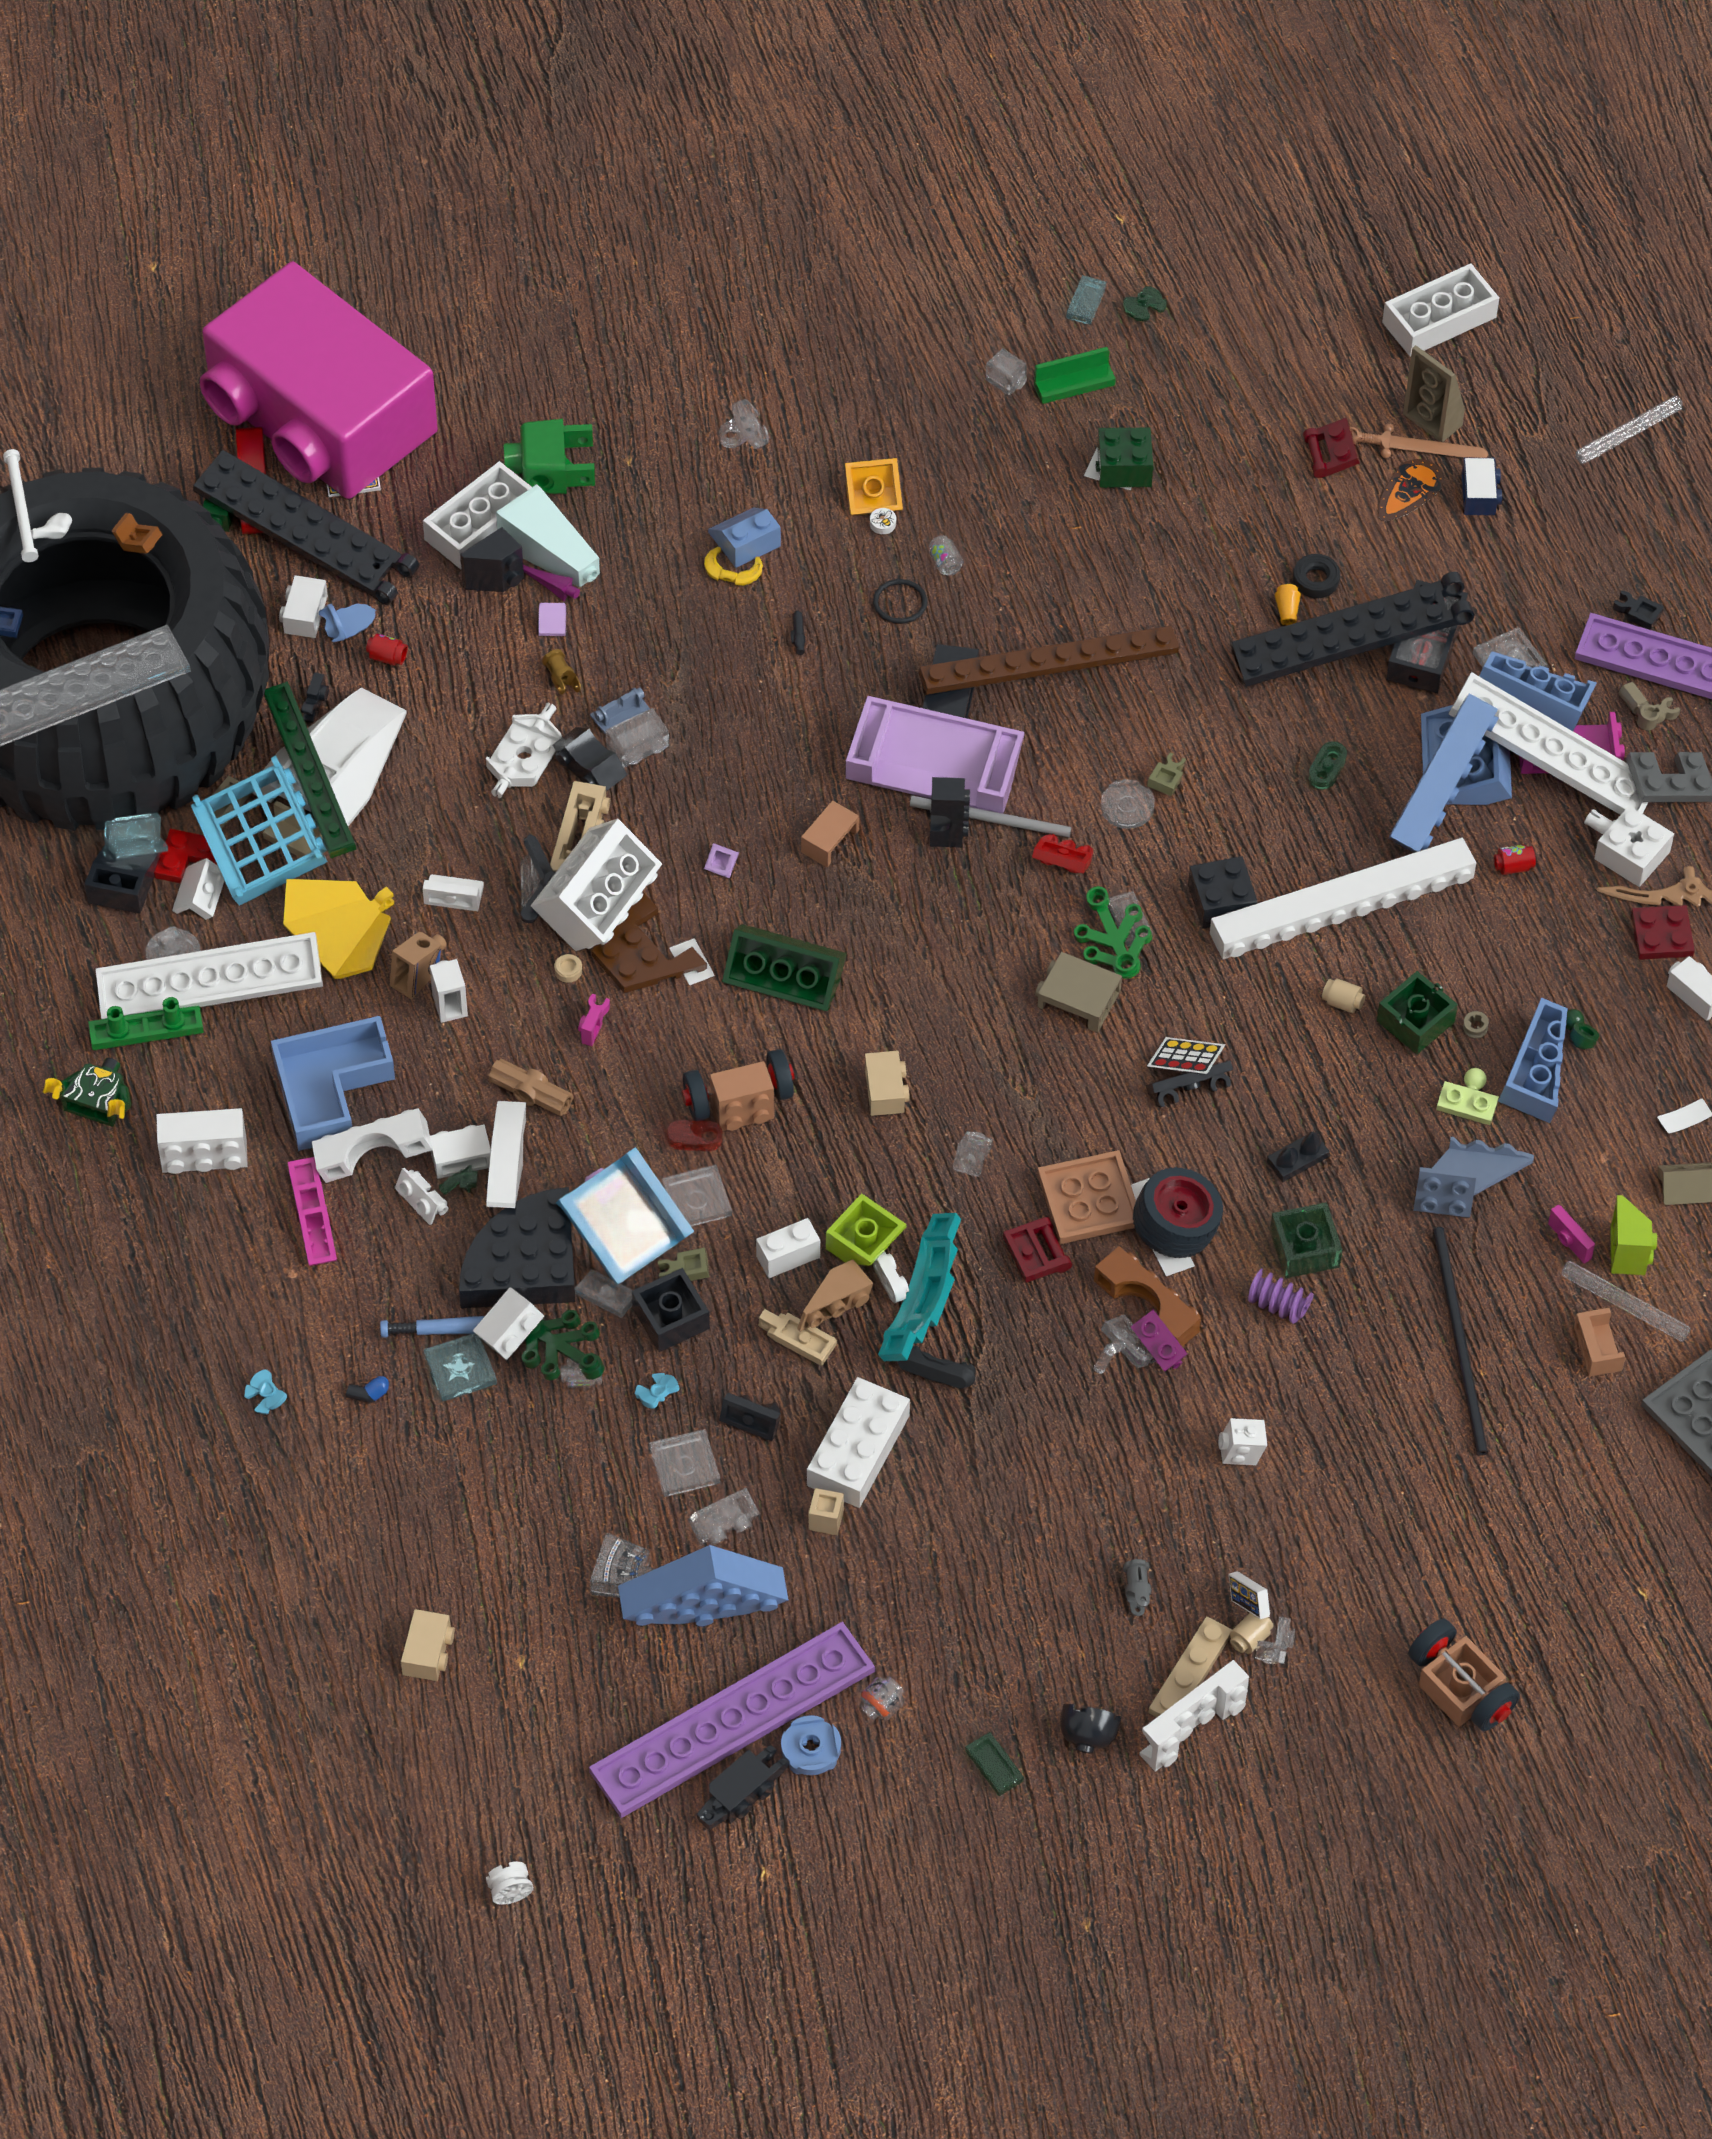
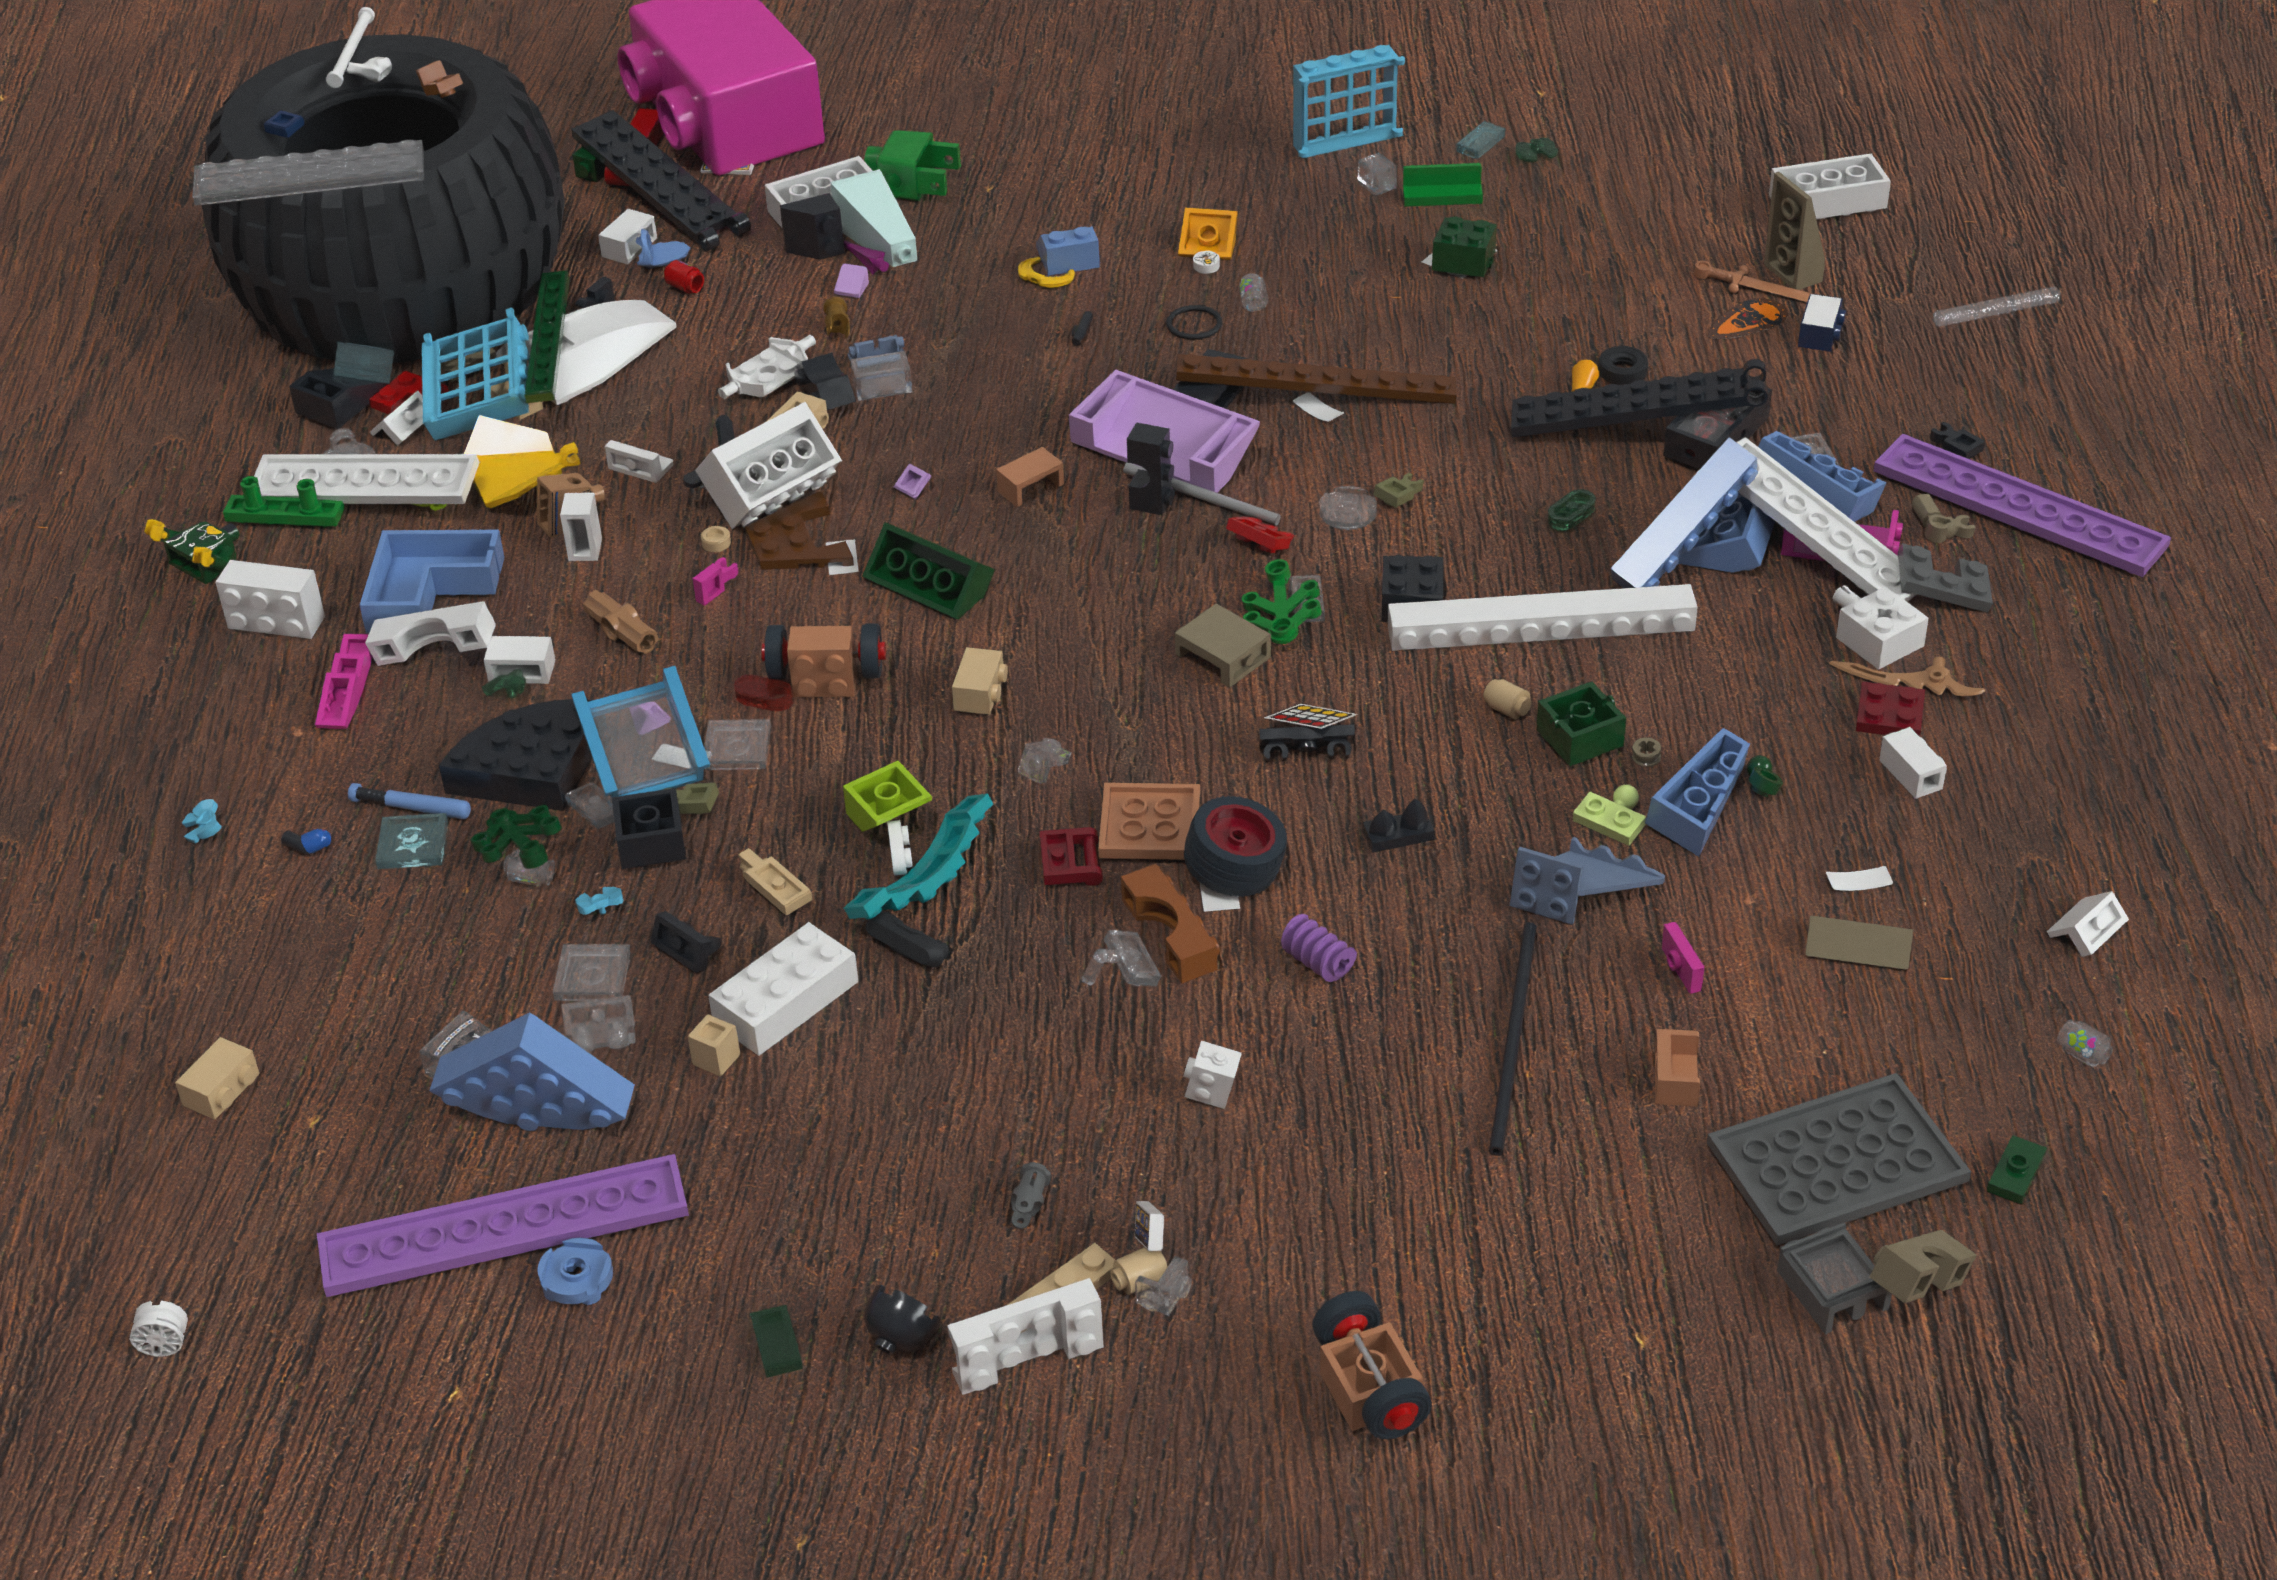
camera: 20 degrees right, 15 degrees down
(414, 1190) = (460, 688): white hinge -> none
(506, 1154) = (555, 662): white slope -> none
(508, 1323) = (474, 805): white piece -> none
(740, 1787) = (473, 1293): black hinge -> none
(746, 425) = (1107, 169): clear tile -> none
(788, 1248) = (803, 801): white piece -> none
(840, 1291) = (826, 849): medium nougat slope -> none
(882, 1698) = (679, 1241): clear head -> none
(981, 254) = (1339, 66): none -> medium azure window
(1056, 687) = (1316, 408): none -> white sticker
(1159, 1341) = (1161, 961): magenta hinge -> none
(1305, 1240) = (1369, 900): clear green brick -> none
(1339, 444) = (1686, 269): dark red plate -> none
(1514, 859) = (1744, 617): red brick -> none
(1626, 1301) = (1726, 1037): clear axle -> none
(1630, 1239) = (1748, 972): lime slope -> none

